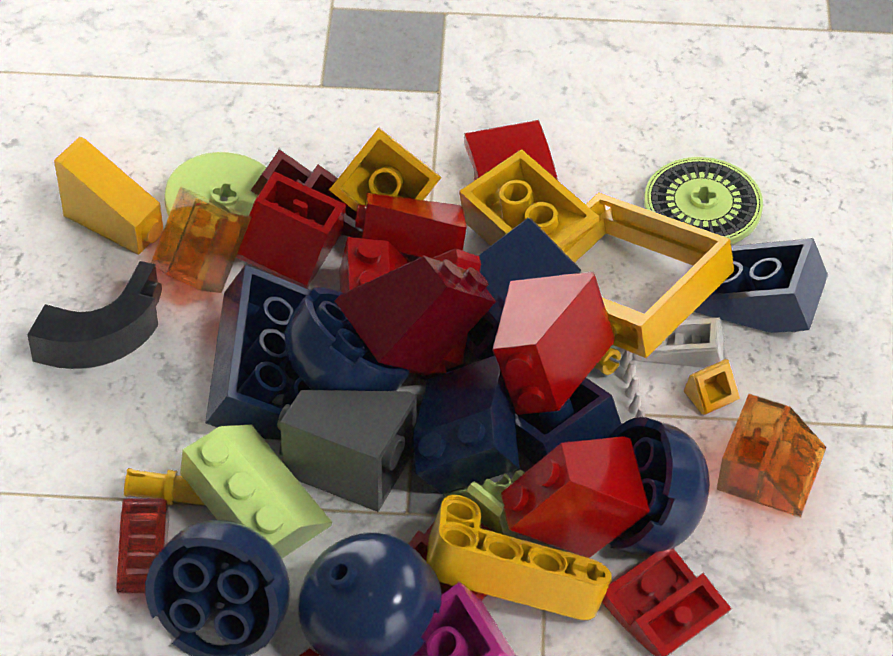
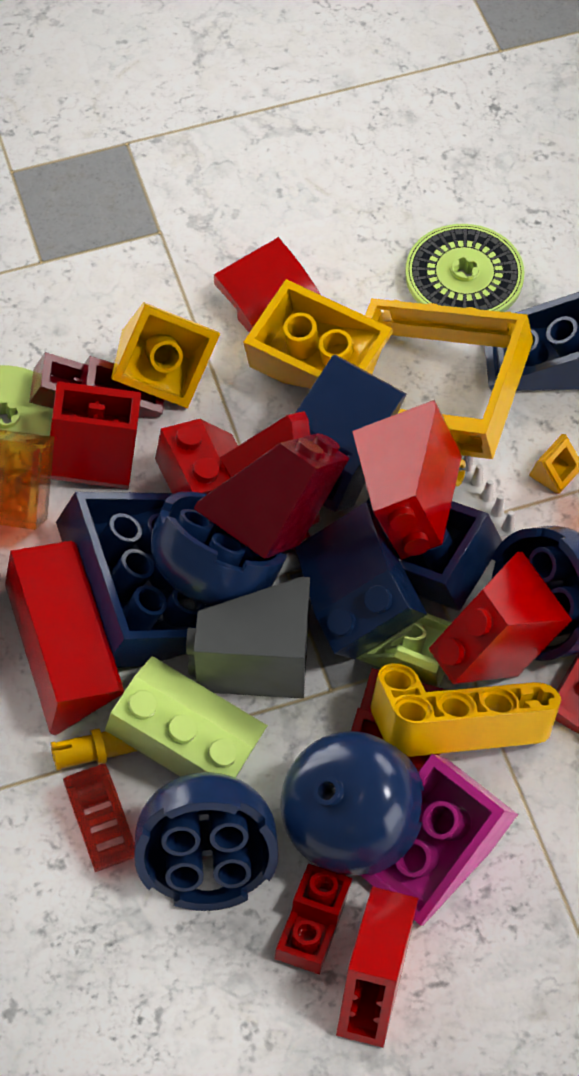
camera: 20 degrees left, 10 degrees up
(182, 379) = (61, 633): none -> red slope
(412, 224) = (216, 392): red slope -> none
(694, 354) = (526, 435): white slope -> none

